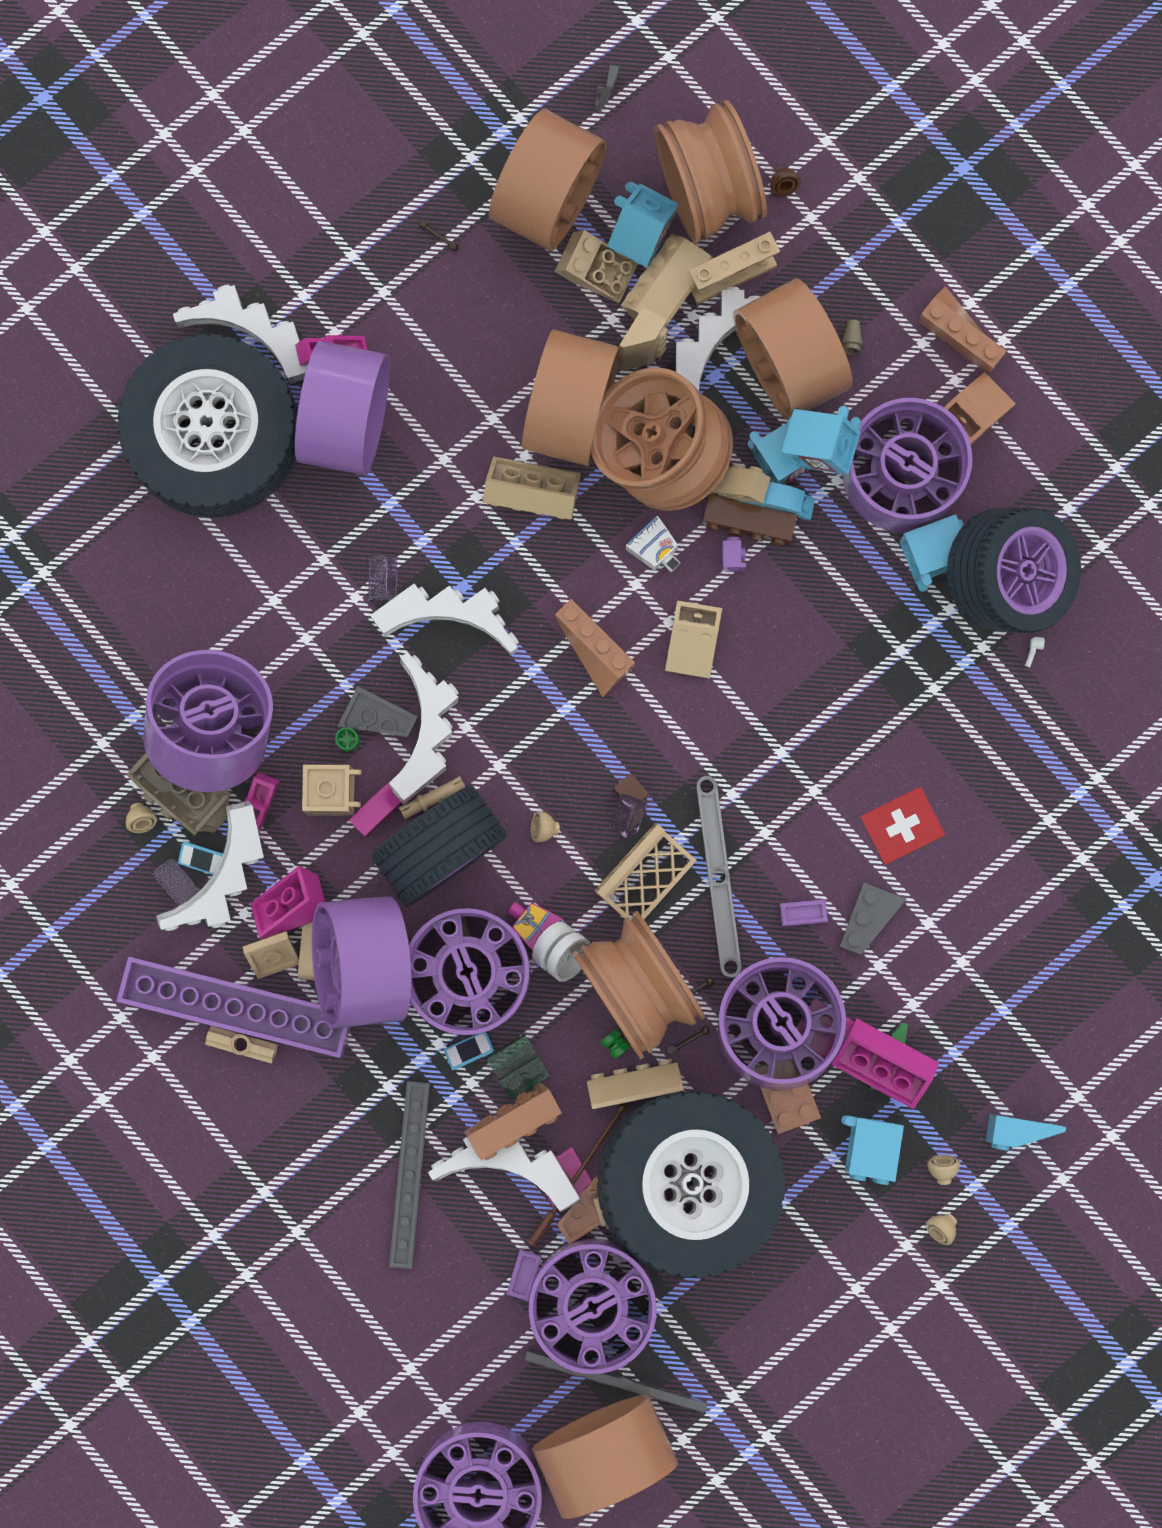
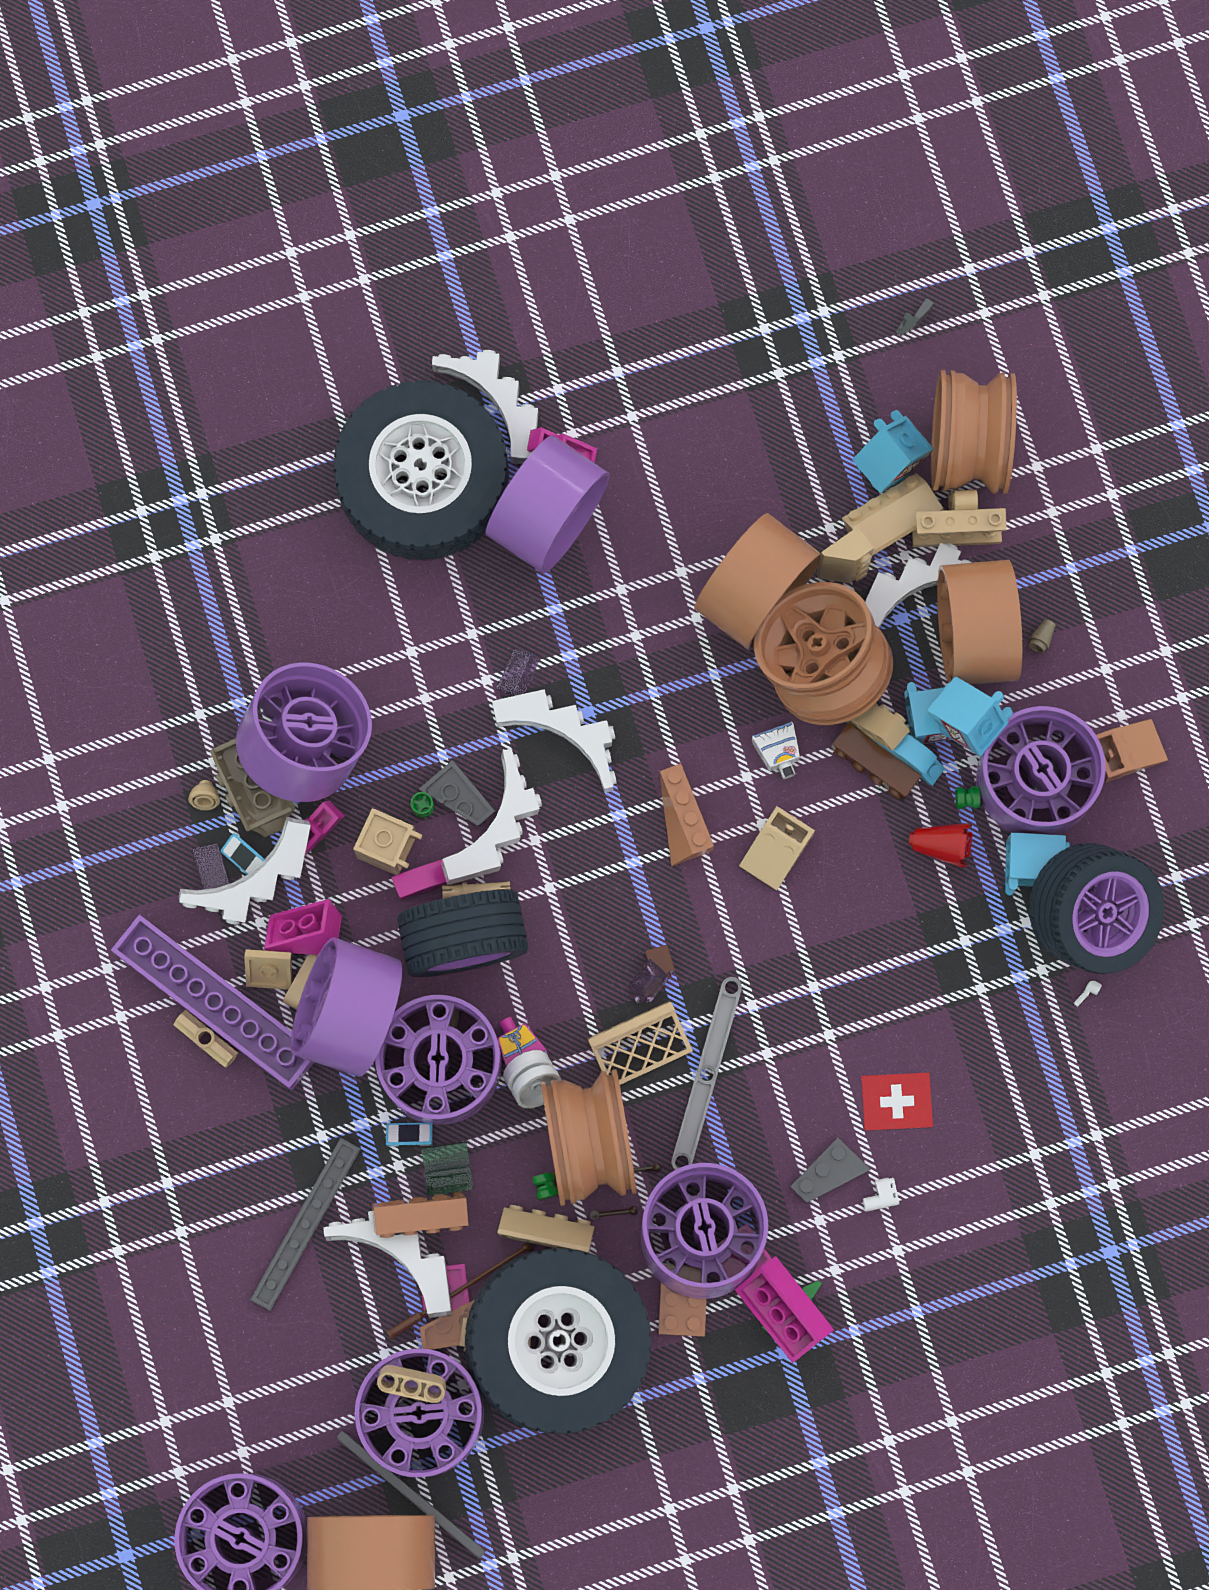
camera: 20 degrees right, 5 degrees down
(453, 245) = (713, 401): dark brown hinge -> none
(524, 1274) = (368, 1359): medium lavender tile -> none
(531, 488) = (689, 648): tan slope -> none
(543, 827) = (565, 960): tan brick -> none
(547, 179) = (822, 377): nougat wheel -> none
(564, 1281) = (400, 1387): none -> tan beam
(595, 266) = (834, 473): tan slope -> none
(726, 241) = (963, 500): none -> tan beam
(733, 554) = (846, 787): medium lavender brick -> none
(784, 181) = (1041, 469): reddish brown brick -> none
(803, 912) = (770, 1141): medium lavender tile -> none
(844, 568) = (944, 842): none -> red cone
(848, 517) = (968, 797): none -> green wheel
(873, 1149) = (739, 1383): medium azure container -> none
(929, 917) = (884, 1197): none -> white piece
(942, 1228) = (772, 1486): tan brick -> none
(943, 1168) = (797, 1432): tan brick -> none
(954, 326) = (1142, 666): nougat wedge -> none
(1016, 1132) = (876, 1424): medium azure slope -> none

